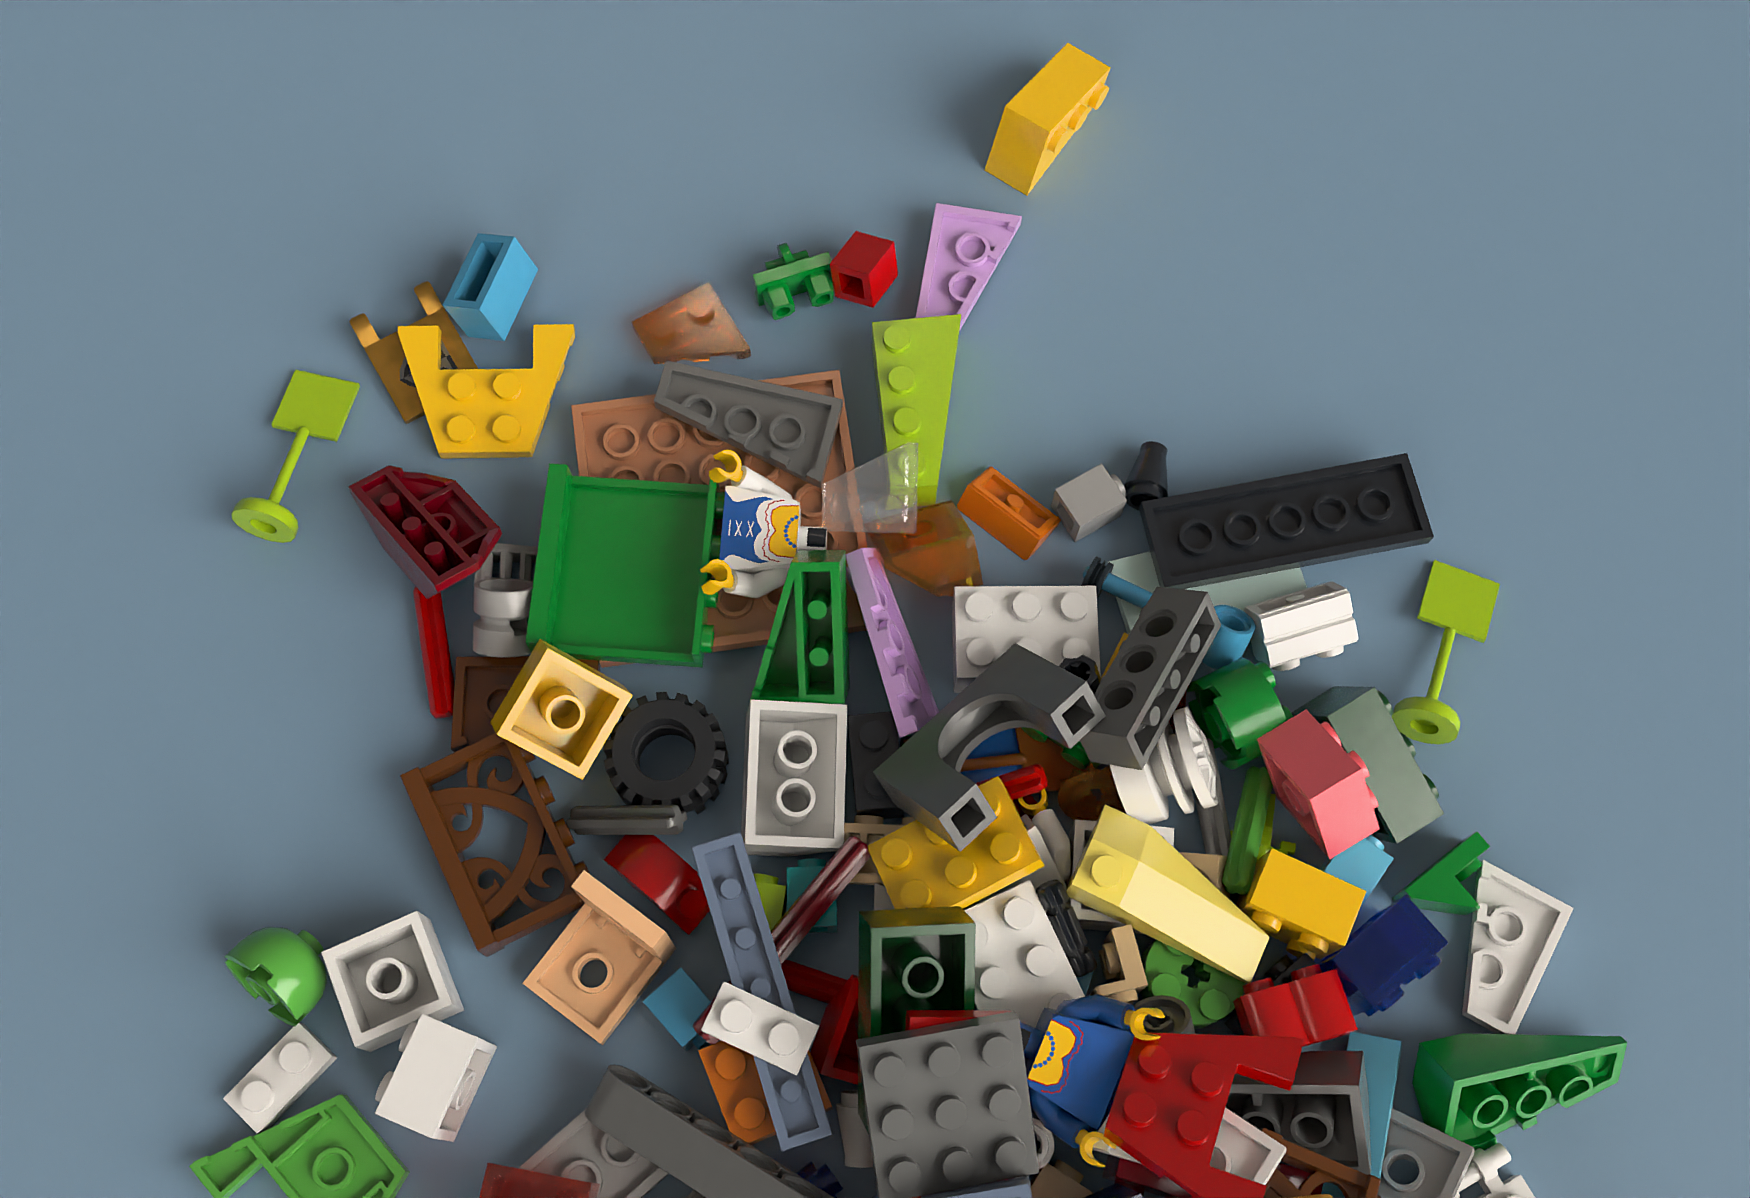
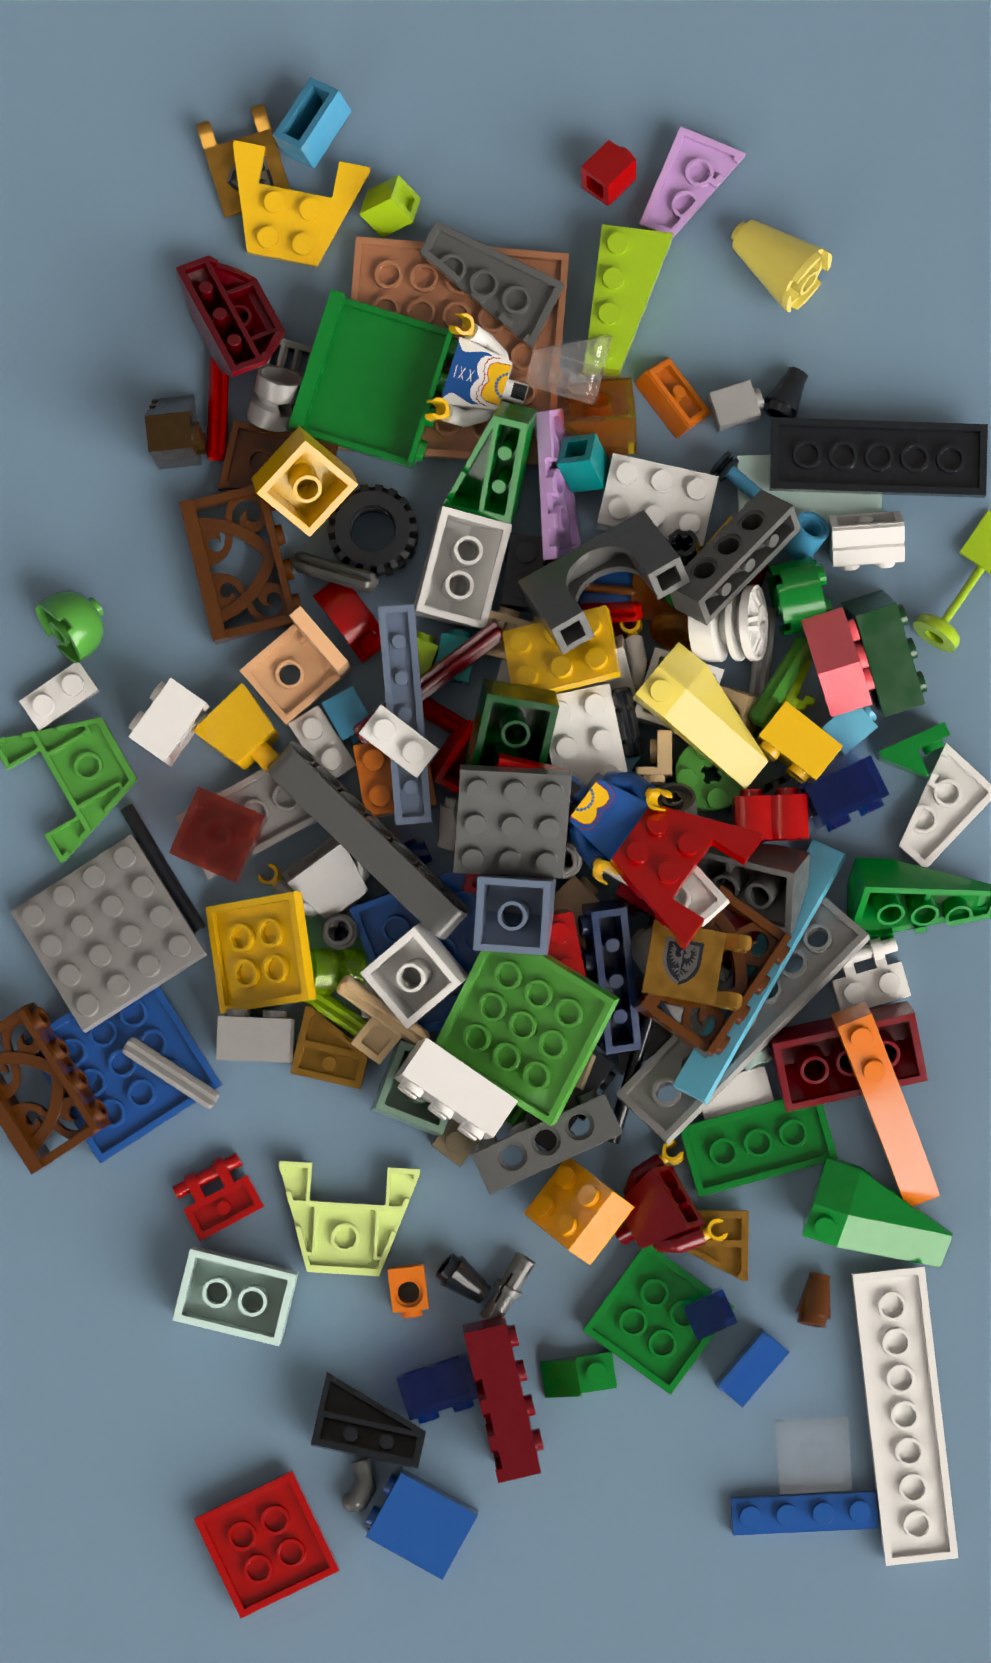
camera: 20 degrees right, 15 degrees up
(310, 407) = (156, 190): lime piece -> none
(378, 691) = (174, 432): none -> dark brown wedge
(391, 980) = (149, 648): white brick -> none
(538, 1066) = (240, 730): none -> yellow torso
(607, 363) = (390, 206): none -> lime panel
(656, 1056) = (322, 742): none -> white plate
(690, 329) = (461, 189): clear orange wing -> none
(792, 276) = (536, 170): green hips -> none
(919, 608) = (583, 462): none -> teal brick
(1046, 116) = (790, 67): yellow wedge -> none
(1099, 323) = (781, 262): none -> light yellow cone

